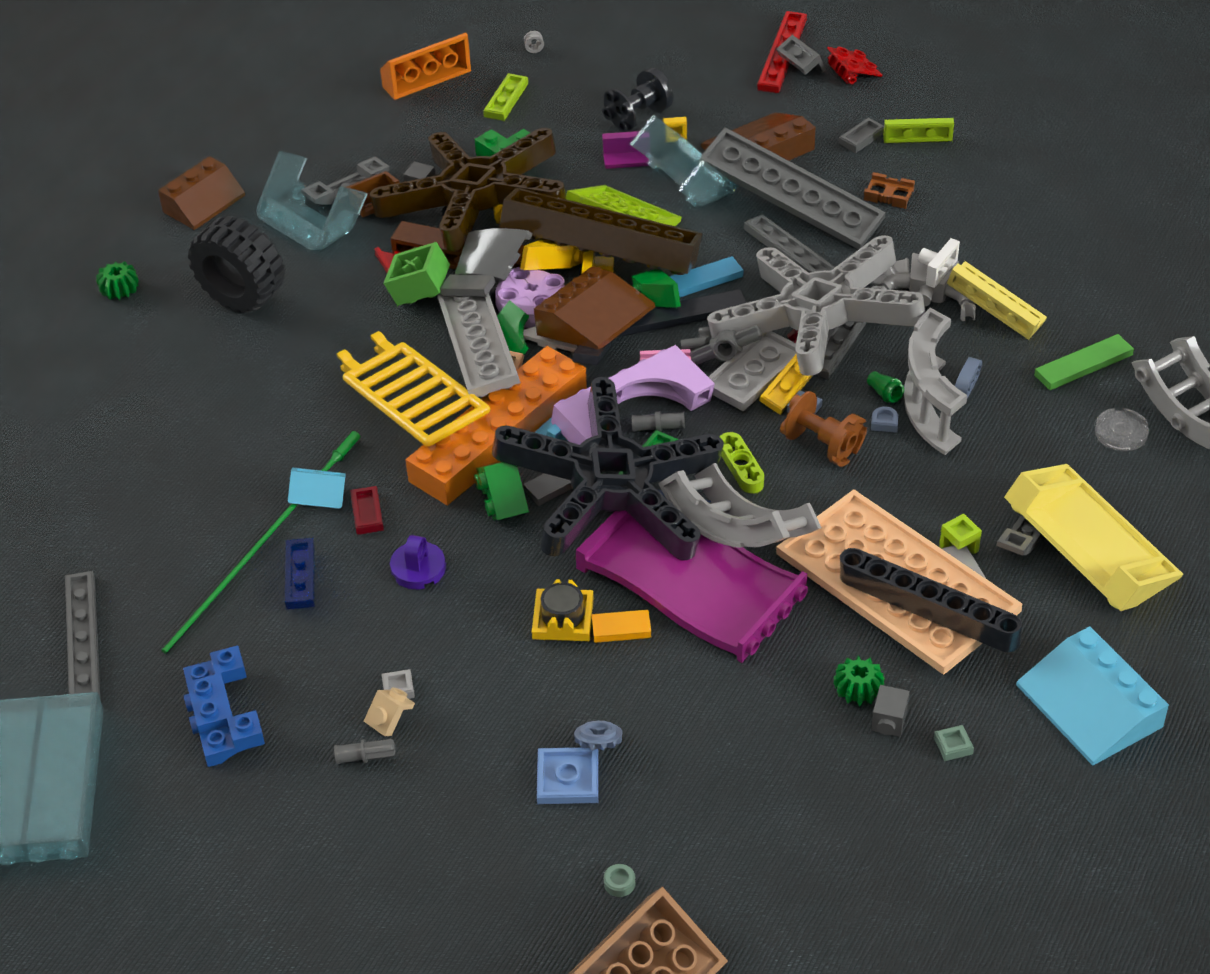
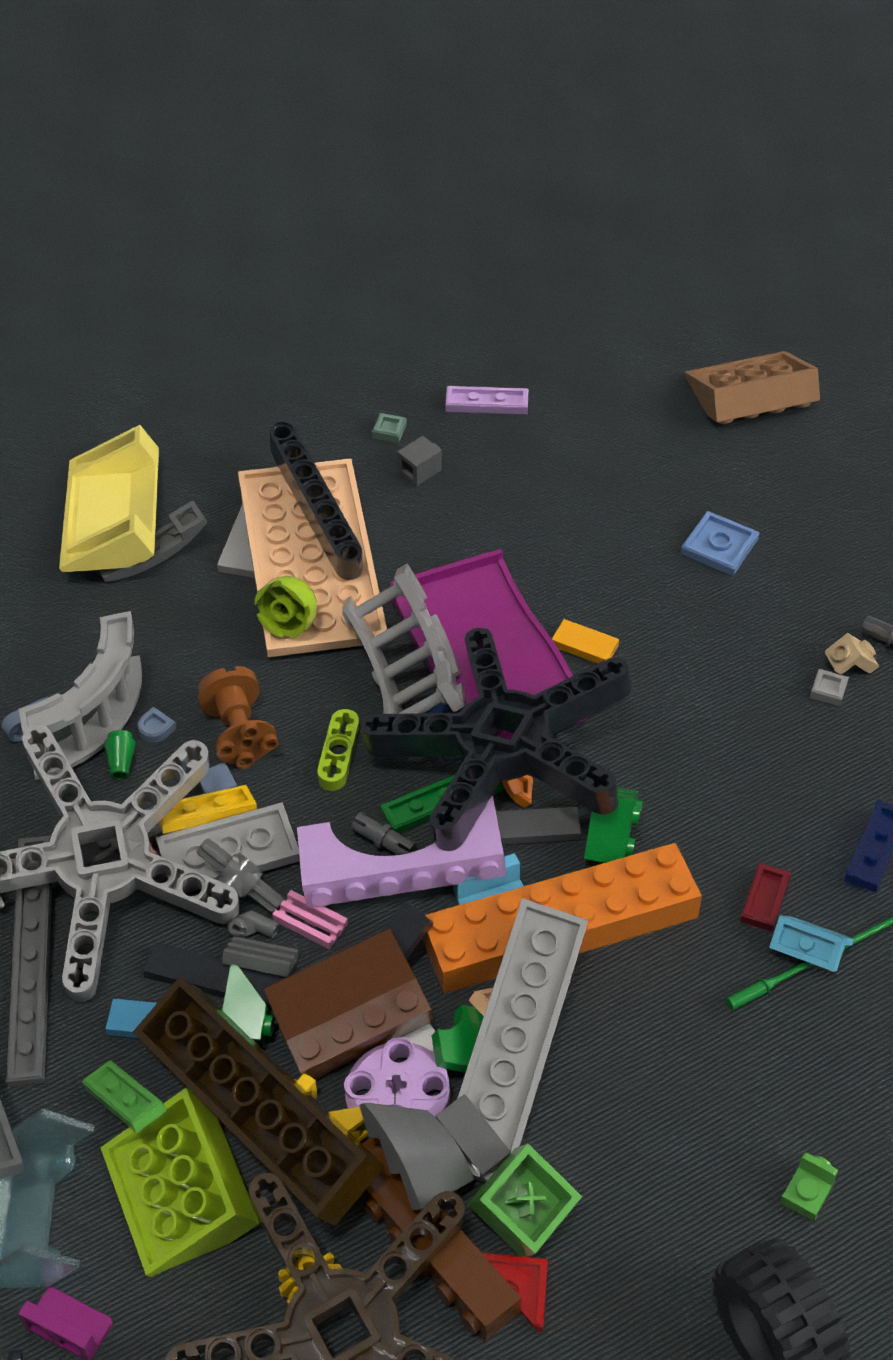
camera: 150 degrees left, 5 degrees up
(254, 366) = (810, 1186): none -> bright green bracket
(387, 352) = (601, 1024): yellow bar -> none
(417, 563) = (744, 801): dark purple tile -> none
(562, 612) = (646, 667): piece -> none
(598, 735) = (682, 537): sand blue gear -> none
(619, 880) = (729, 453): sand green tile -> none
(669, 214) = (123, 1096): none -> bright green tile
(672, 316) = (260, 956): none -> dark grey tile
(858, 680) = (423, 493): green gear -> none
(859, 501) = (286, 606): none -> lime cylinder
(892, 821) = (487, 400): none -> lavender tile
(960, 533) = (220, 561): lime panel -> none
(1093, 696) = (249, 398): medium azure slope -> none

